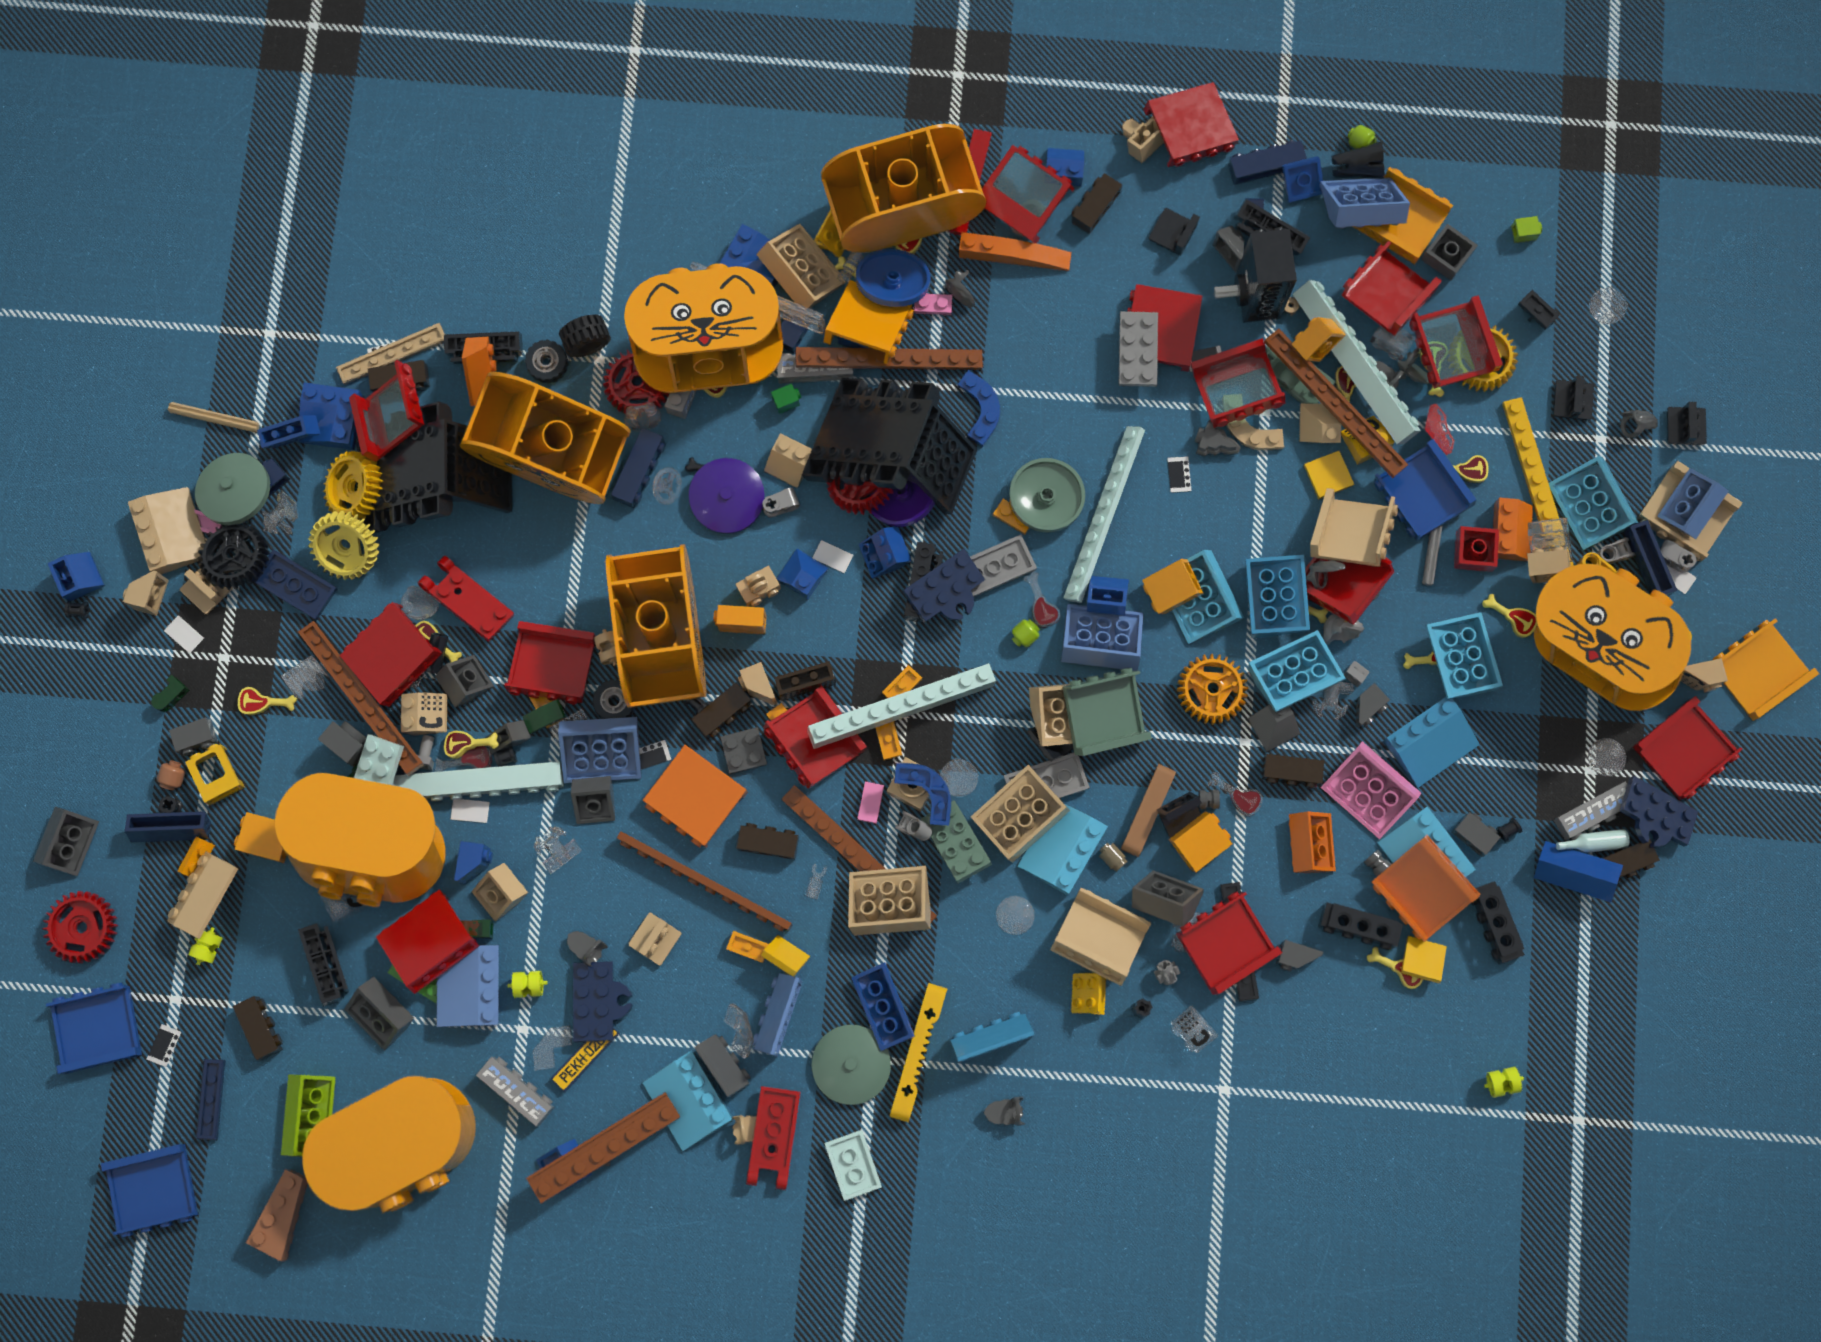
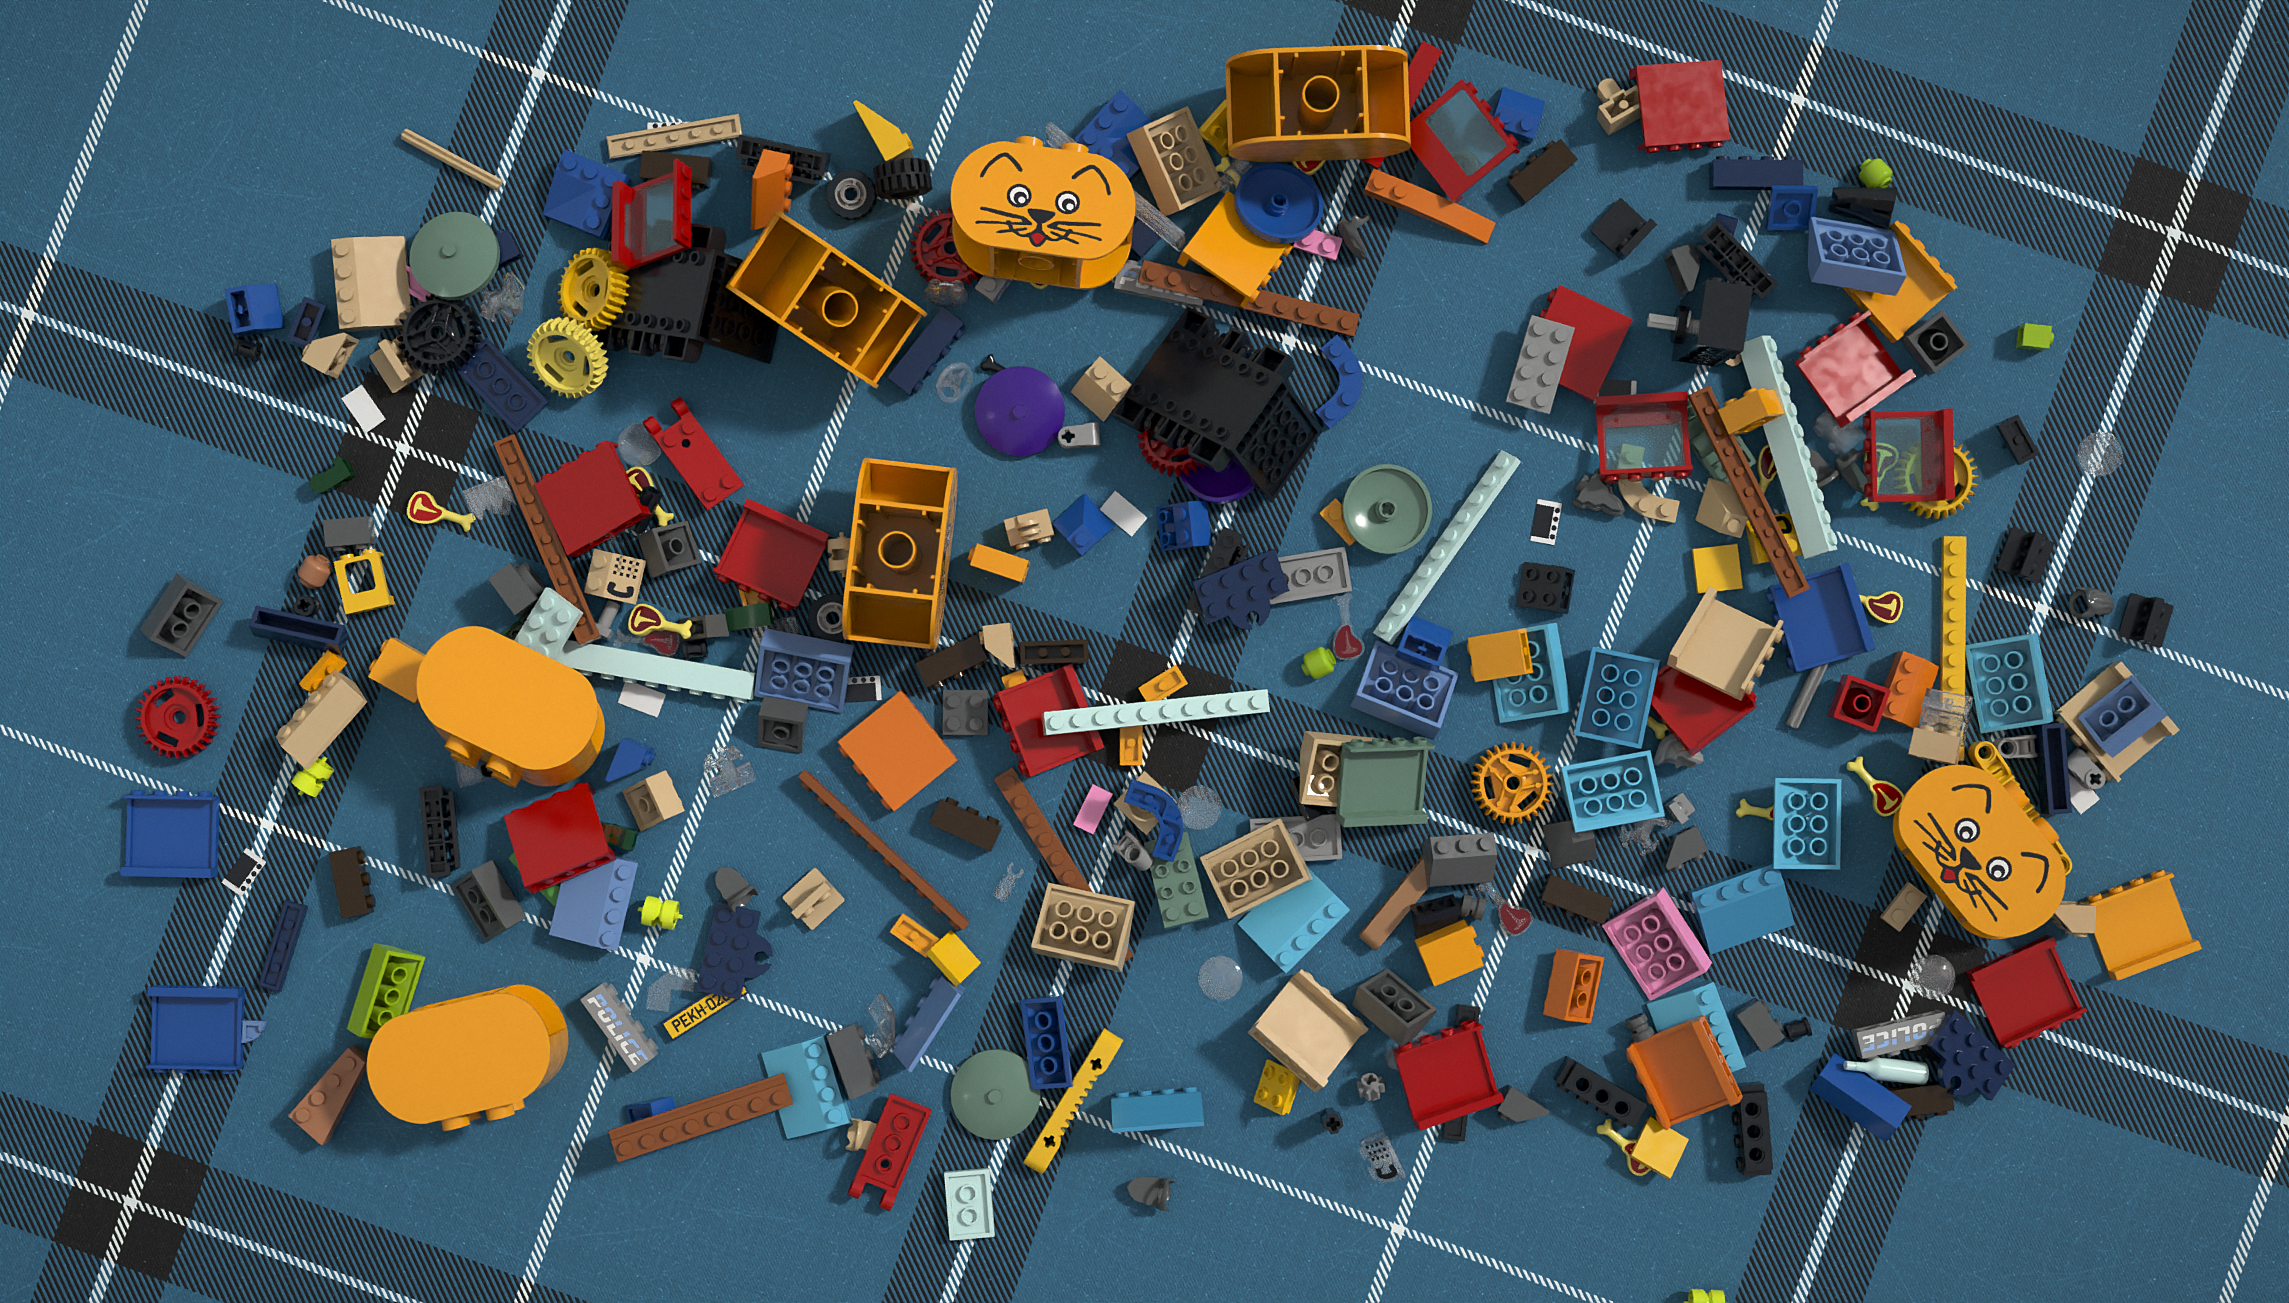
camera: 15 degrees right, 10 degrees up
(121, 572) = (307, 321): none -> dark blue brick
(199, 1179) = (252, 1029): none -> medium blue tile
(288, 431) = (534, 204): blue brick -> none
(559, 304) = (886, 136): none -> yellow slope
(786, 398) = (1117, 314): green brick -> none
(1112, 856) = (1346, 942): dark tan brick -> none
(1187, 760) = (1460, 859): none -> dark grey slope
(1194, 524) = (1545, 587): none -> black bracket
(1322, 567) = (1679, 683): dark grey piece -> none
(1437, 428) = (1858, 550): clear tile -> none
(1564, 706) = (1903, 906): none -> tan plate

